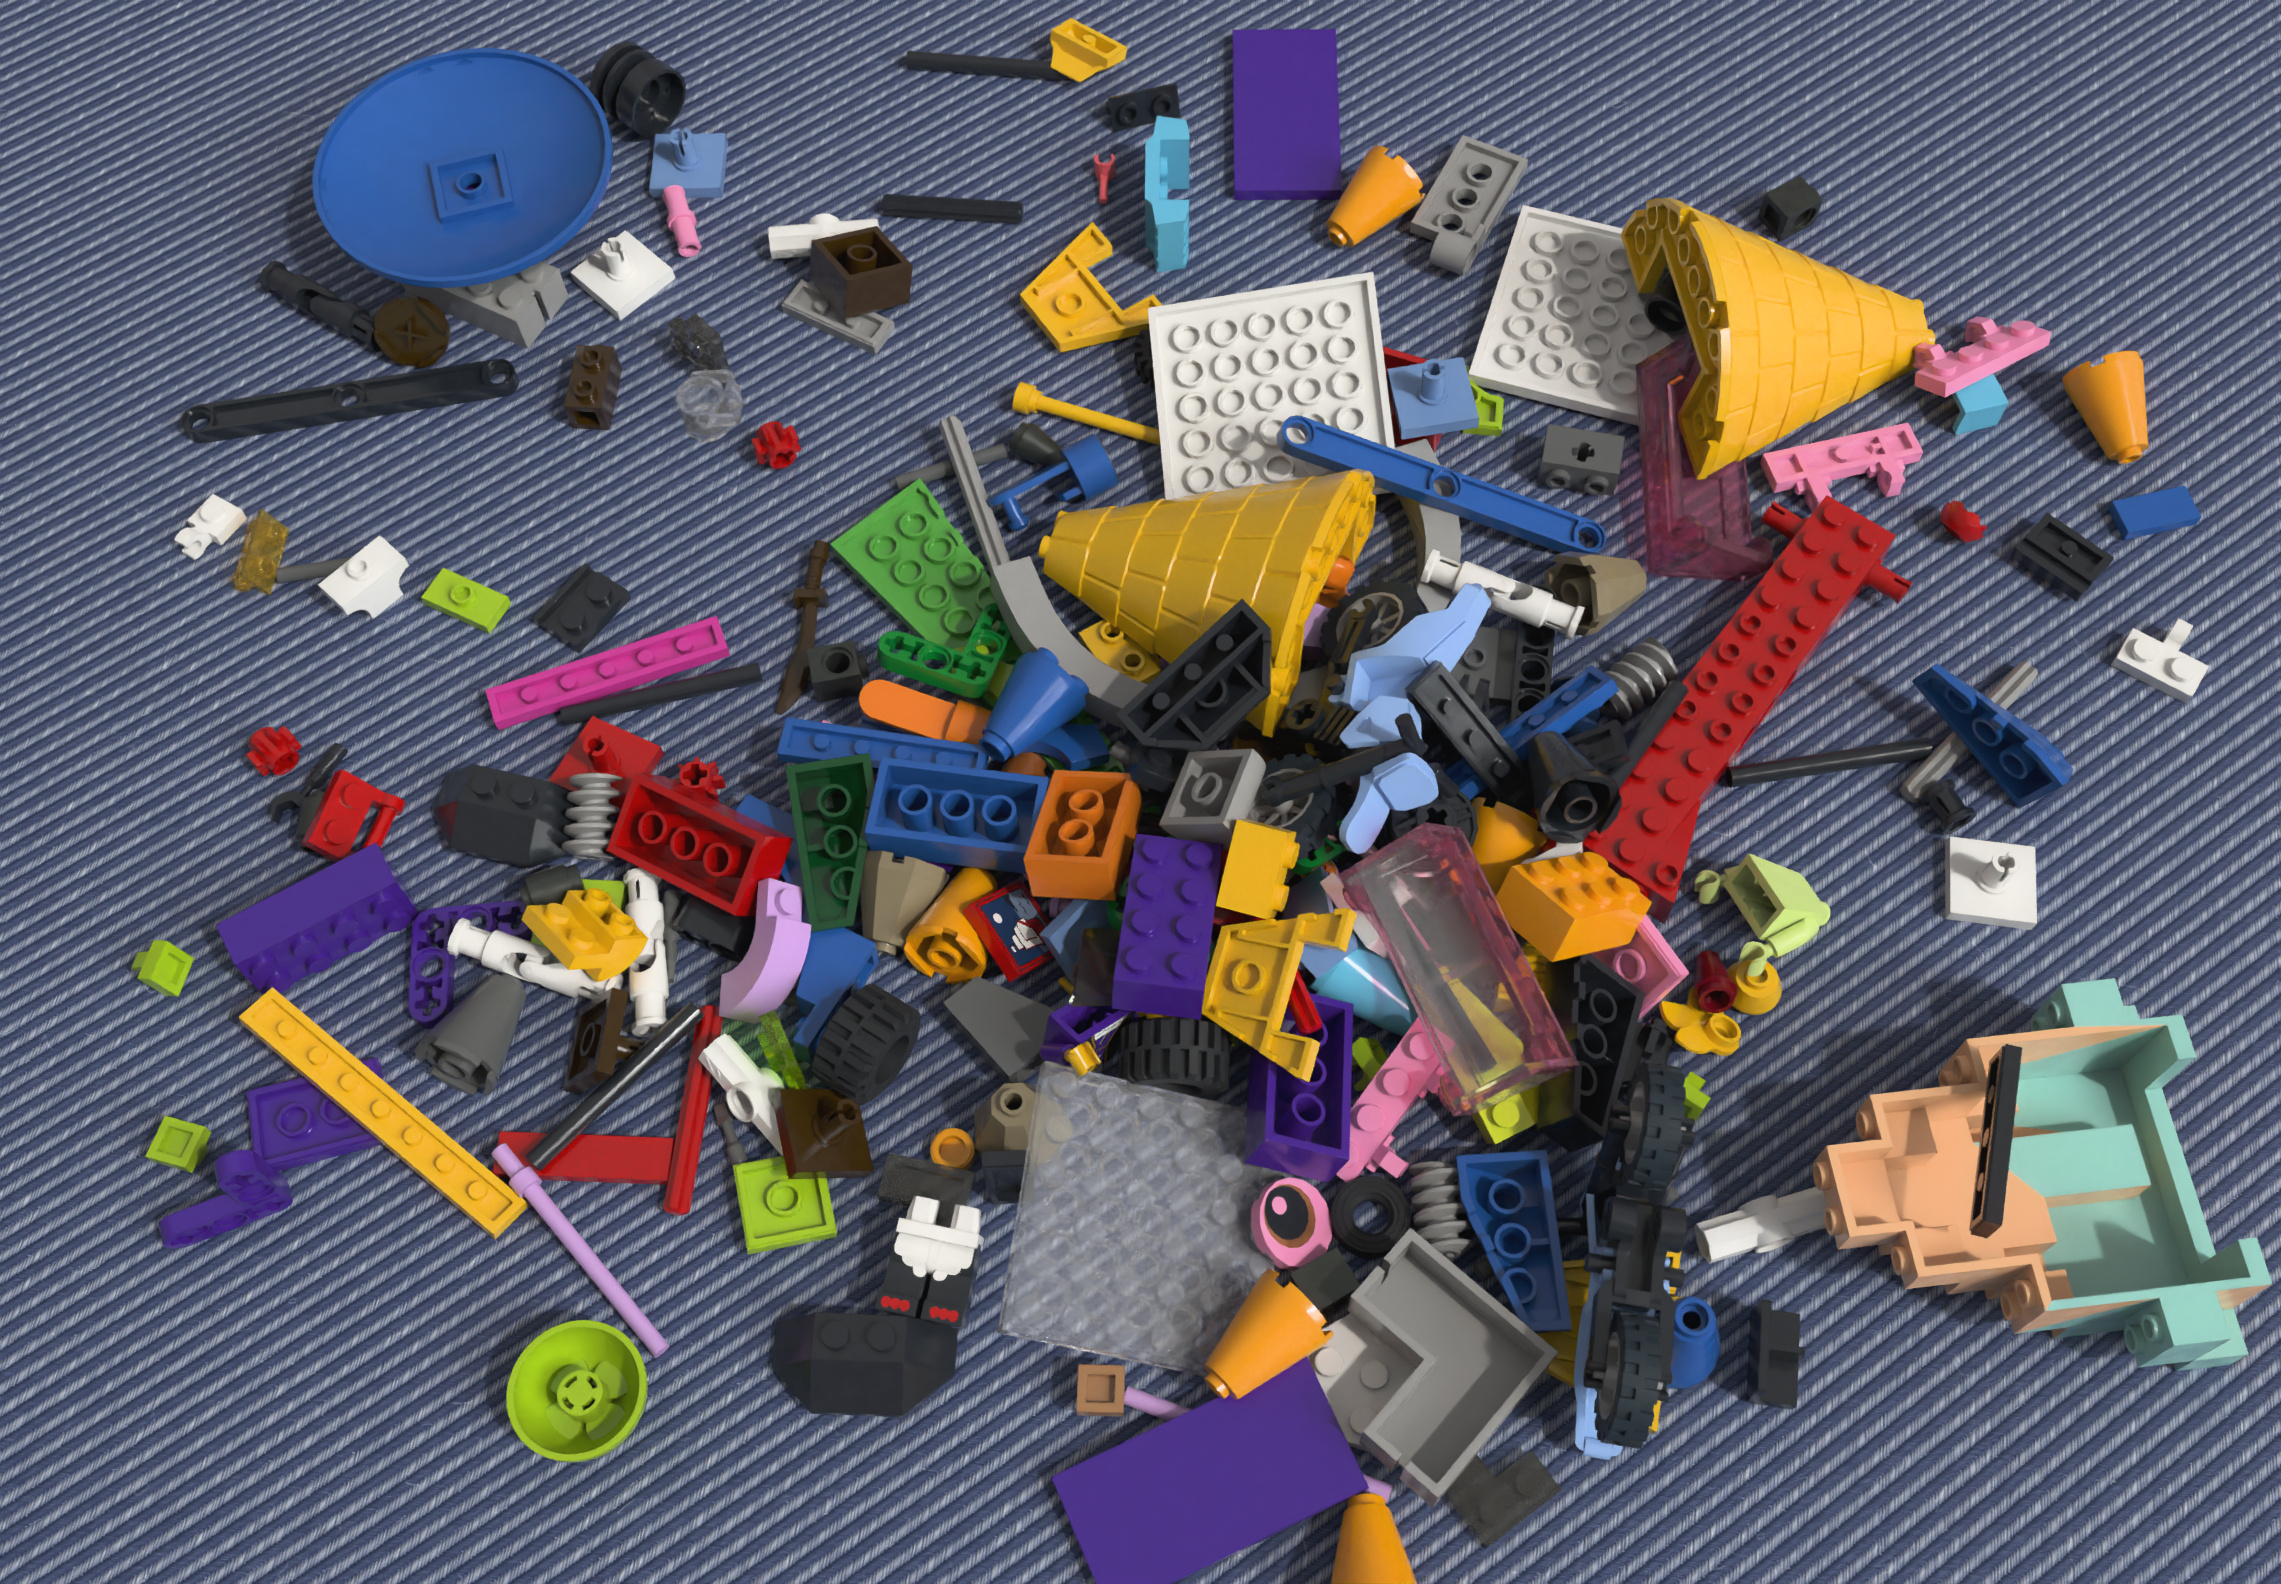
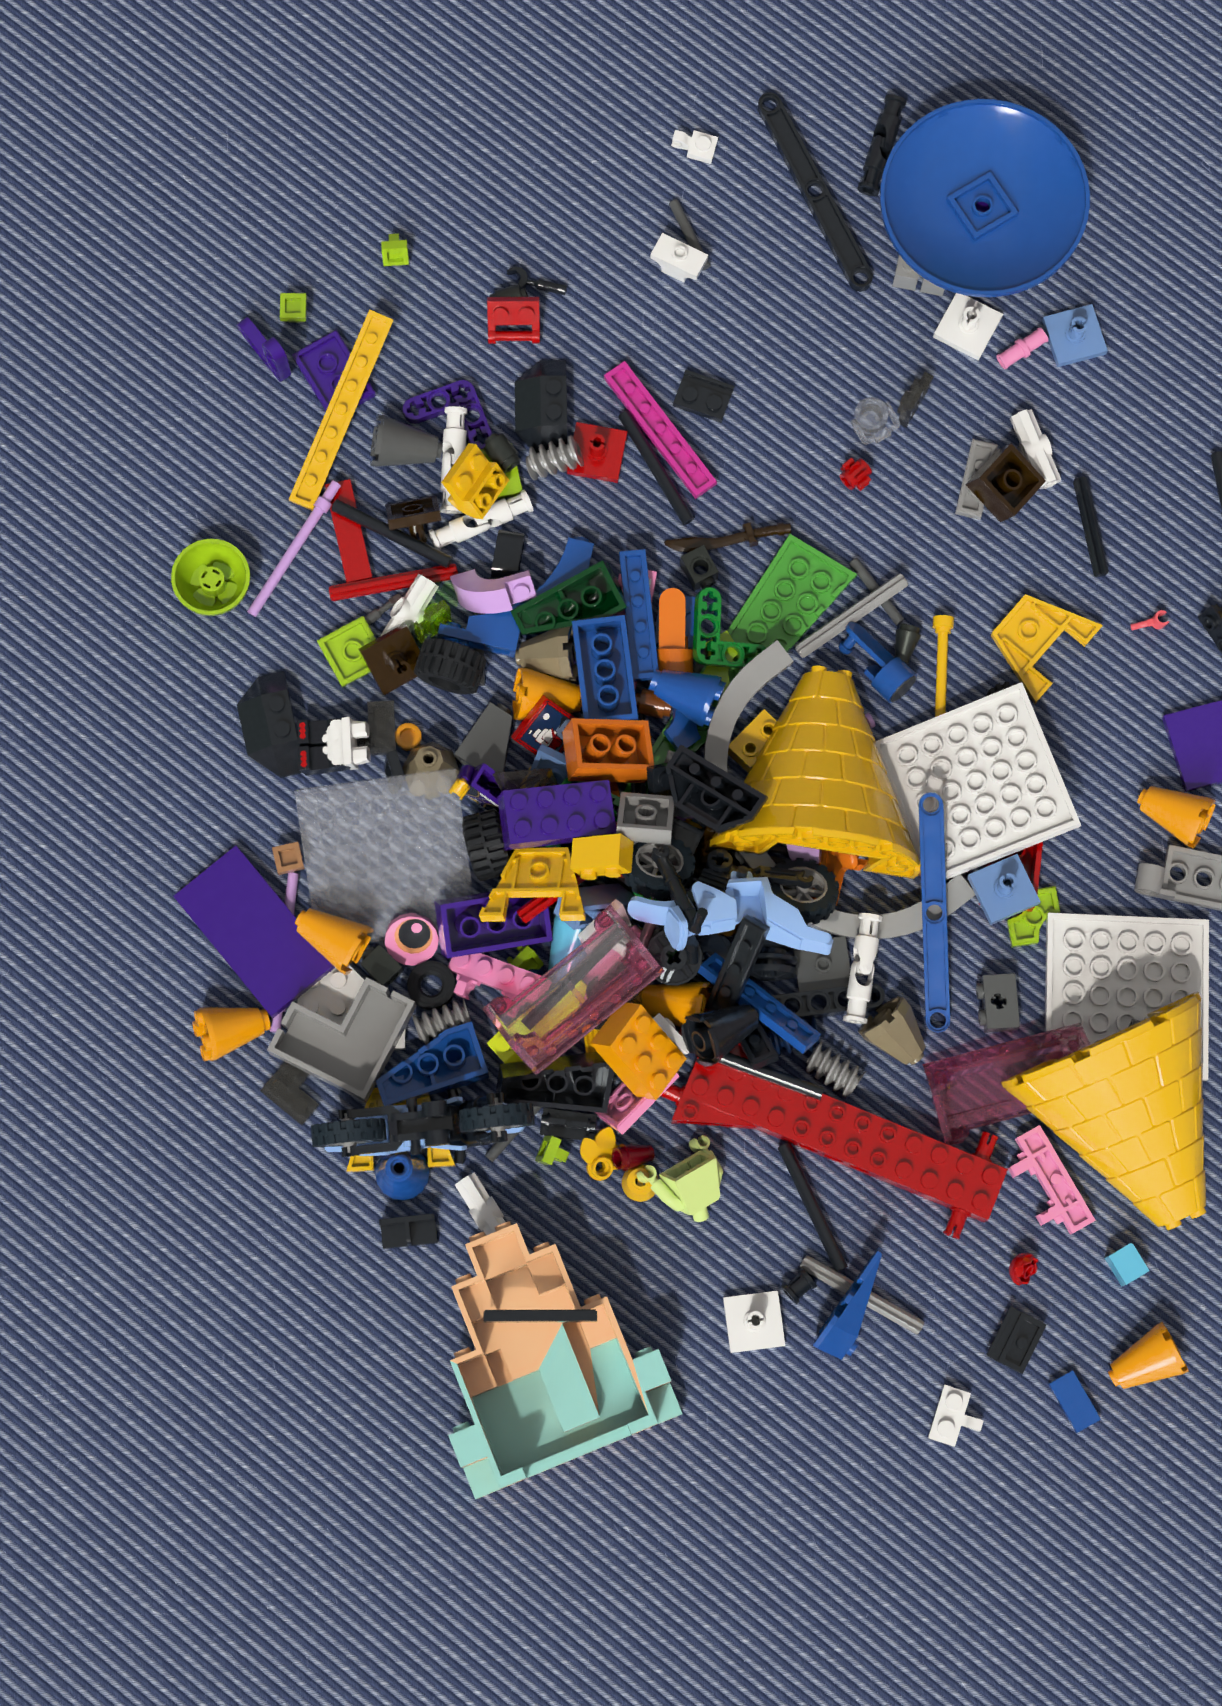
camera: 70 degrees right, 15 degrees up
(263, 554) = (692, 184): clear yellow hinge -> none
(273, 750) = (548, 253): red gear -> none
(318, 920) = (443, 328): dark purple brick -> none
(411, 330) = (868, 210): dark brown tile -> none
(466, 600) = (688, 323): lime plate -> none
(593, 387) = (868, 341): dark brown brick -> none
(638, 89) = (1118, 279): black wheel -> none
(672, 908) = (509, 526): dark grey piece -> none
(697, 843) = (549, 526): red brick -> none
(705, 775) = (602, 506): red gear -> none
(1167, 169) = (1170, 660): medium azure plate -> none
(1992, 351) = (1177, 1275): bright pink hinge -> none

